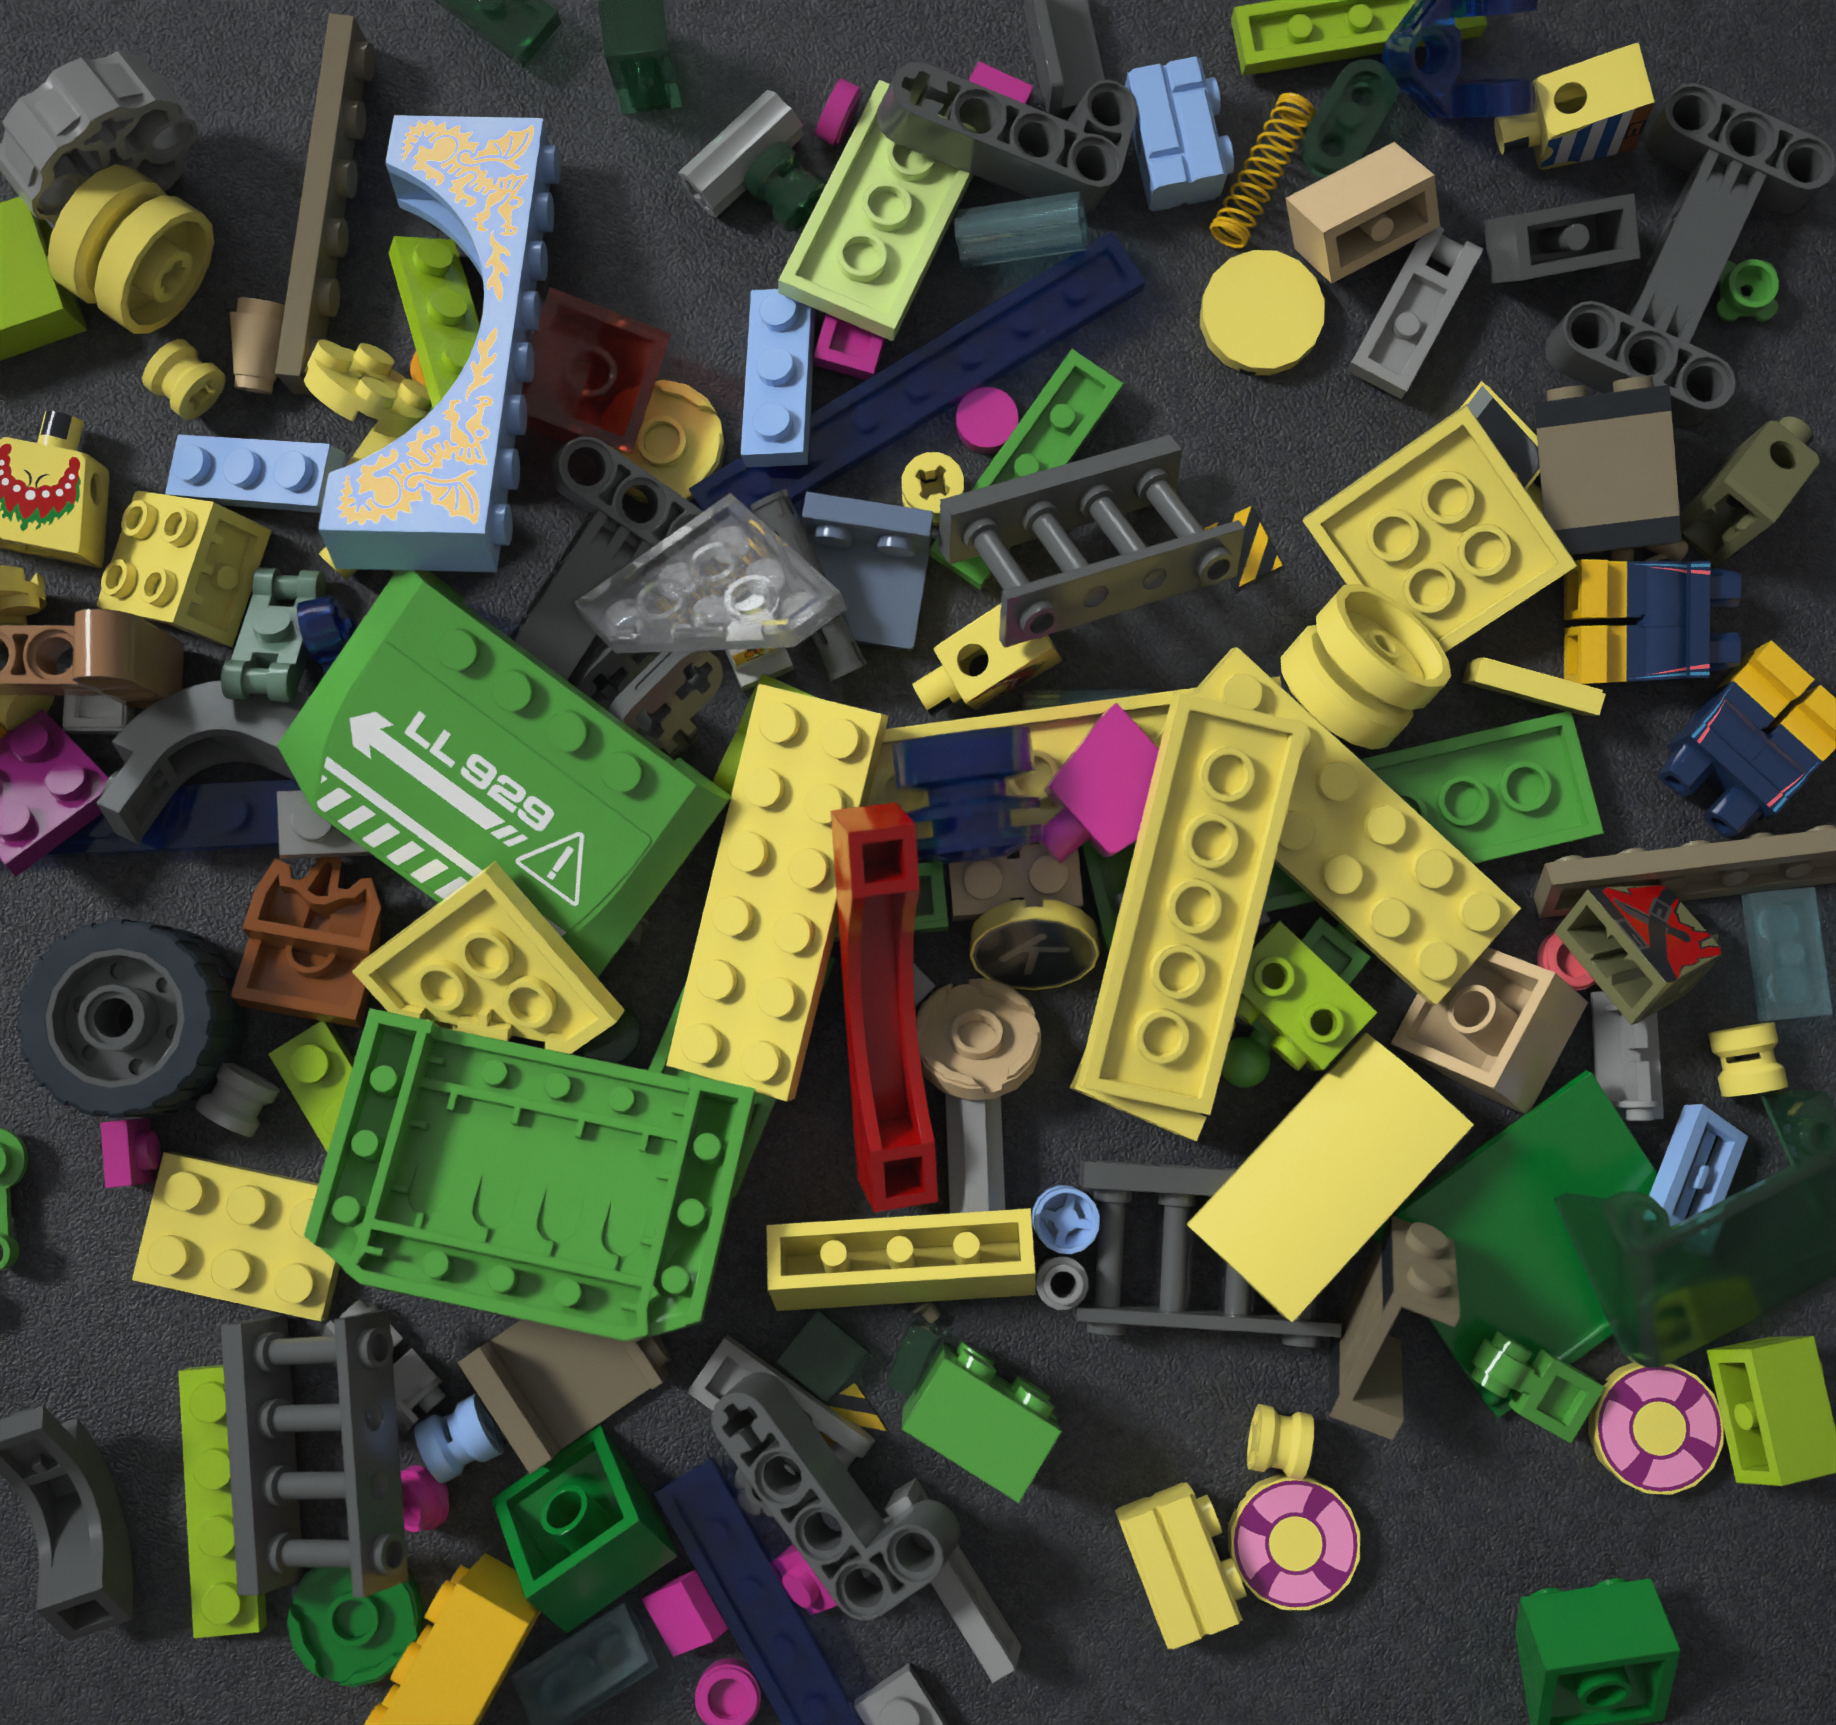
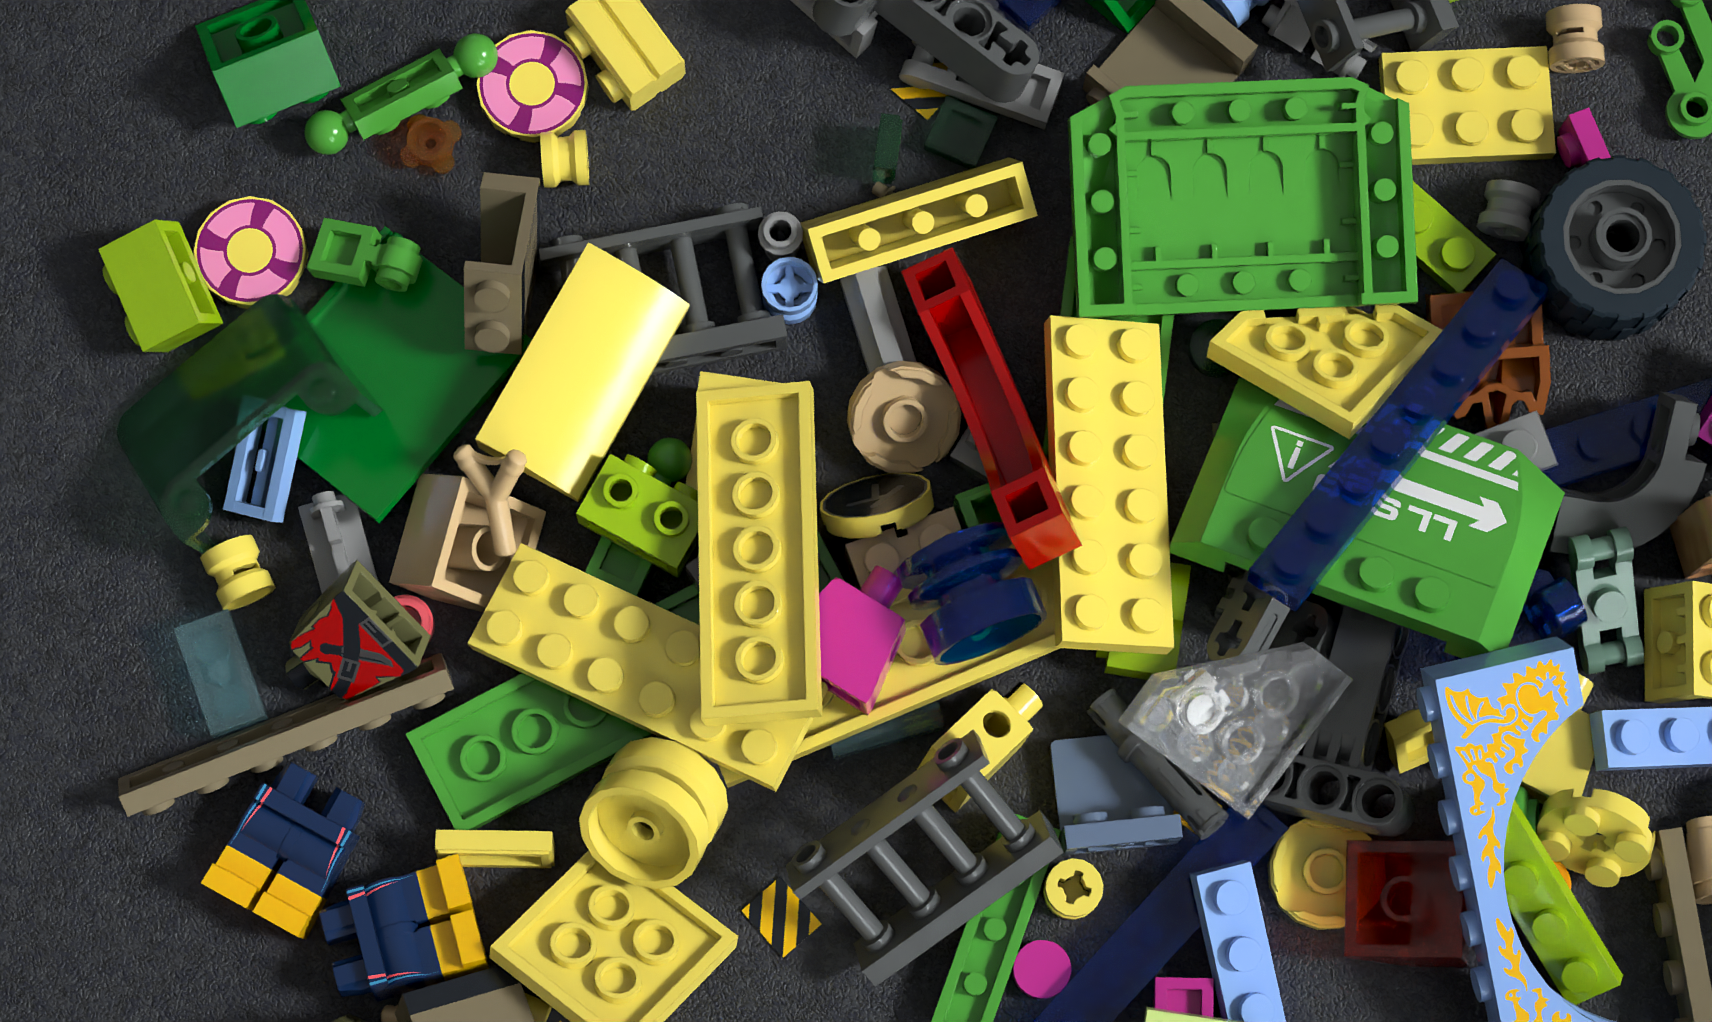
camera: 160 degrees right, 5 degrees down
(96, 1279) = (1575, 38): none -> tan wheel
(440, 850) = (1397, 435): none -> clear blue plate
(530, 551) = (1408, 740): none -> light yellow plate
(981, 1419) = (818, 110): bright green brick -> none
(1441, 1513) = (429, 128): none -> clear orange plate
(1449, 1569) = (401, 94): none -> bright green plate
(1460, 1063) = (494, 490): none -> tan piece

